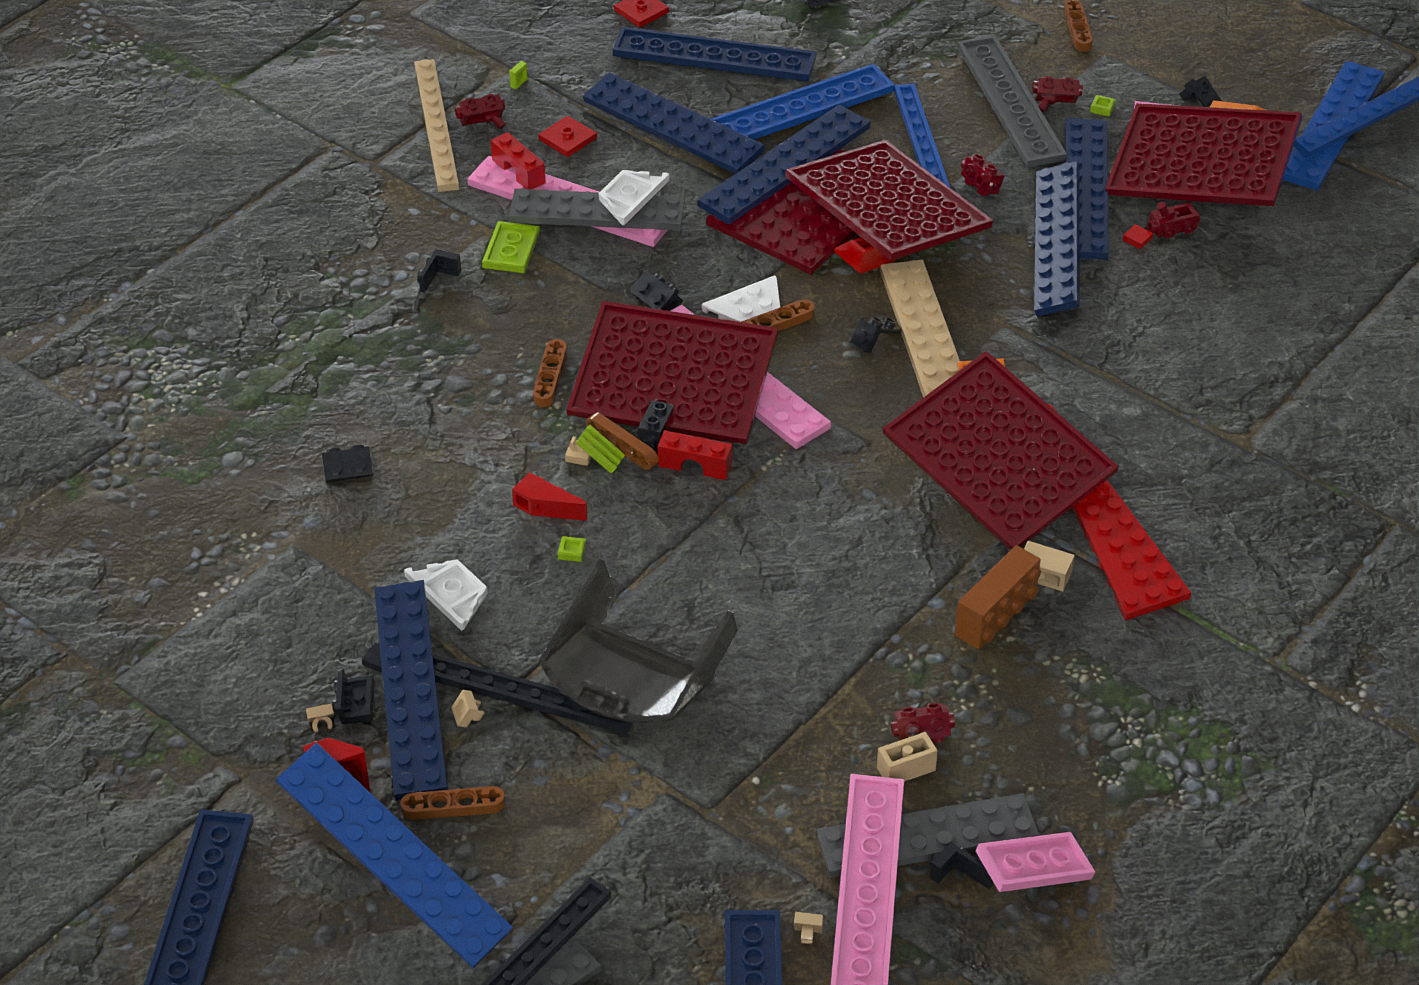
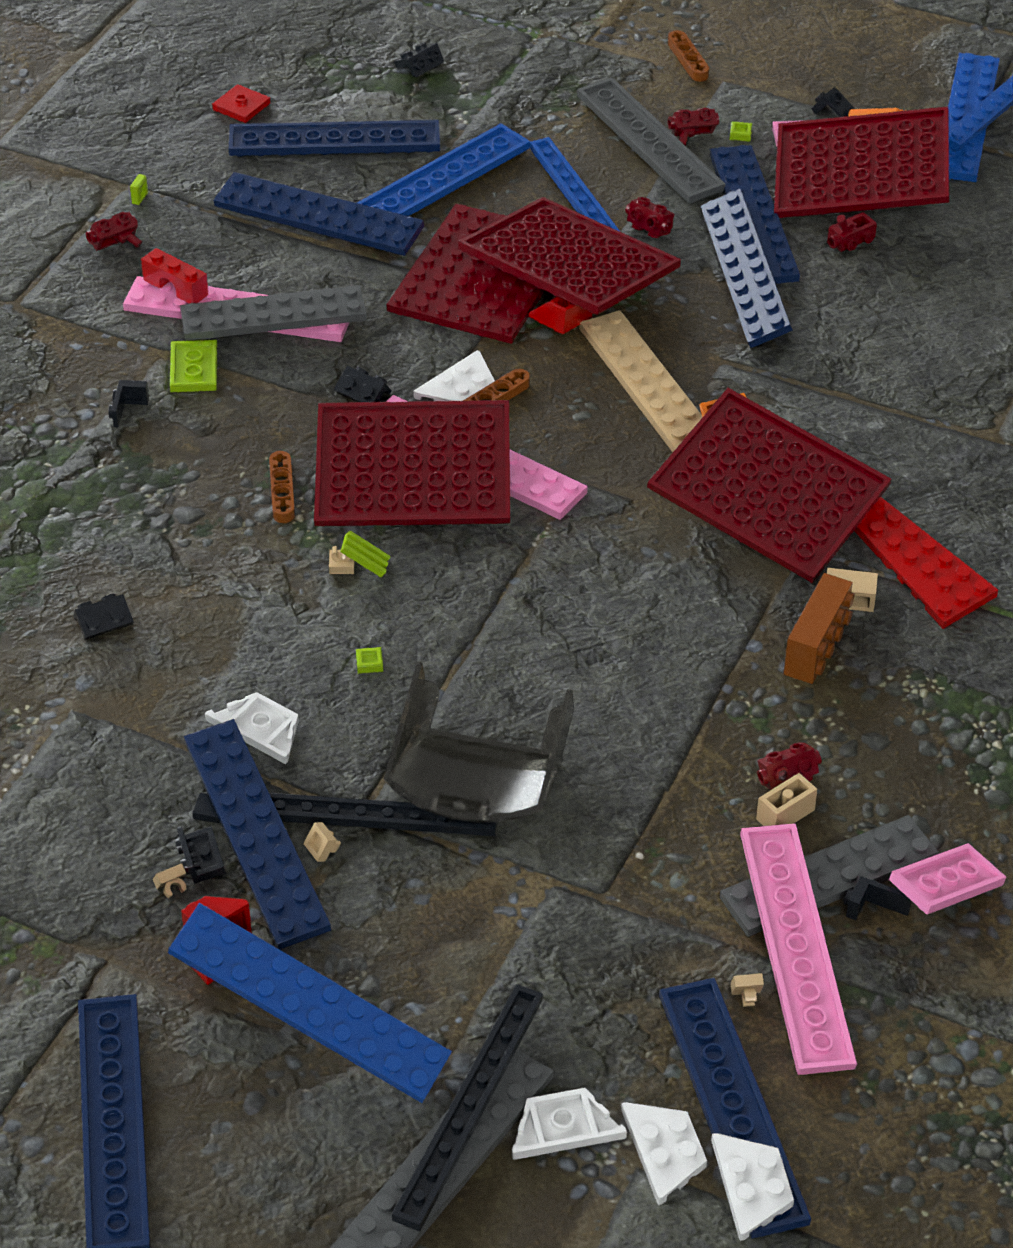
camera: 15 degrees left, 0 degrees up
(436, 126) = (69, 254): tan plate -> none
(453, 807) = (342, 943): dark orange beam -> none
(544, 499) = (325, 615): red slope -> none
(567, 136) = (211, 244): red plate -> none
(627, 443) = (407, 550): dark orange beam -> none
(630, 192) = (305, 290): white wing -> none
(653, 423) = (412, 522): black bracket -> none
(712, 455) = (479, 538): red arch -> none
(767, 174) = (438, 245): dark blue plate -> none
(870, 329) = (595, 388): black bracket -> none
(1137, 236) = (821, 254): red tile -> none

